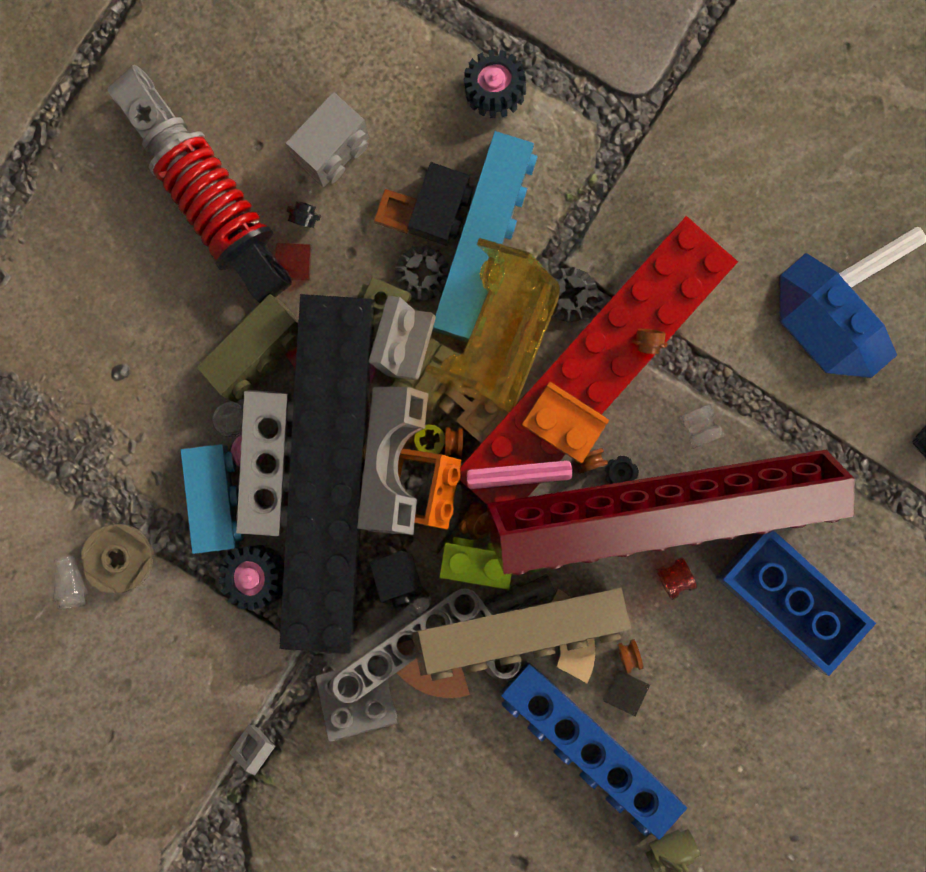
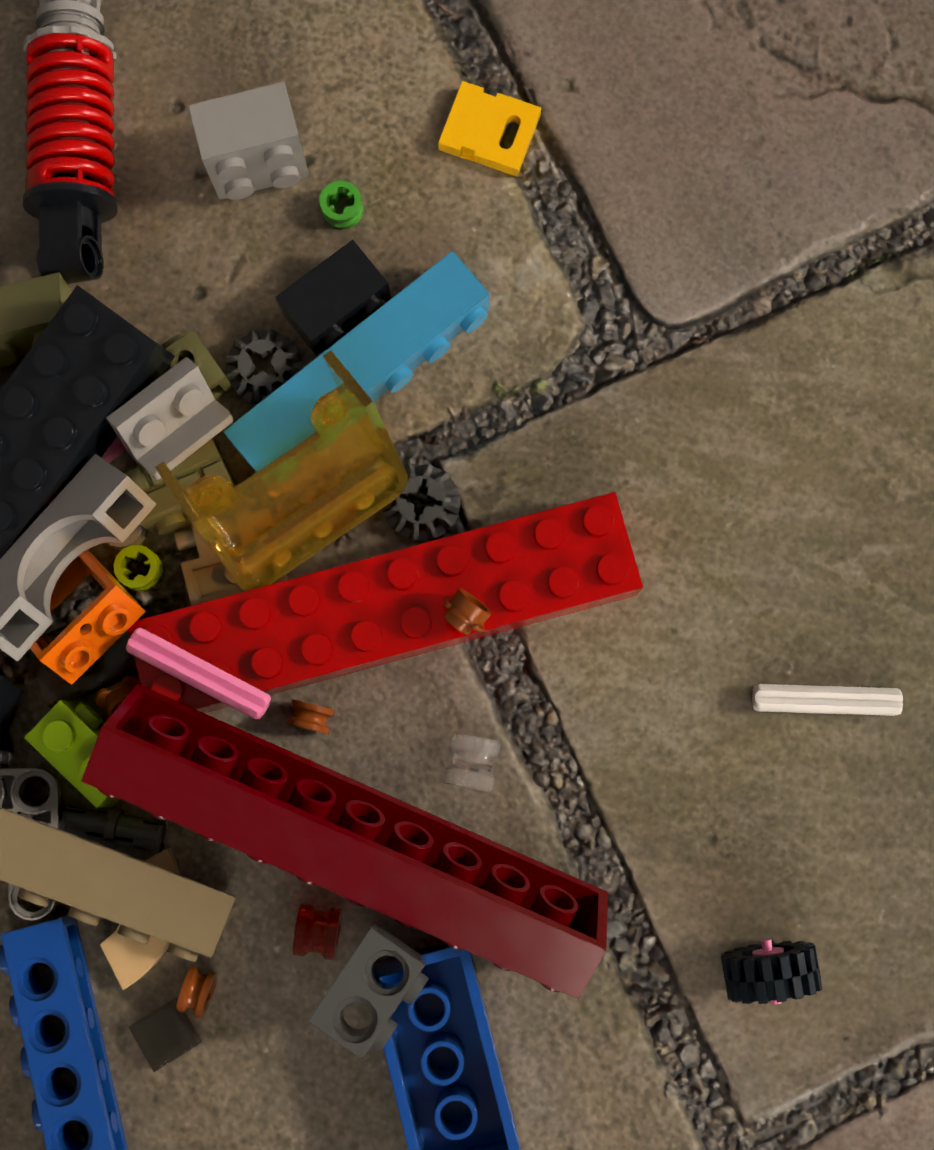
camera: 35 degrees right, 5 degrees down
(295, 259) = (126, 259): clear red plate -> none
(303, 214) = (169, 212): black plate -> none
(392, 142) = (331, 195): none -> bright green bush
(395, 211) = (276, 272): dark orange plate -> none
(452, 40) = (478, 126): none -> yellow piece
(454, 442) = (161, 588): dark orange bush -> none
(495, 83) = (492, 200): black wheel -> none
(565, 422) = (297, 646): orange plate -> none
(621, 463) = (348, 745): black plate -> none
(726, 586) = (360, 984): none -> dark grey brick
(832, 321) = (717, 738): blue wedge -> none

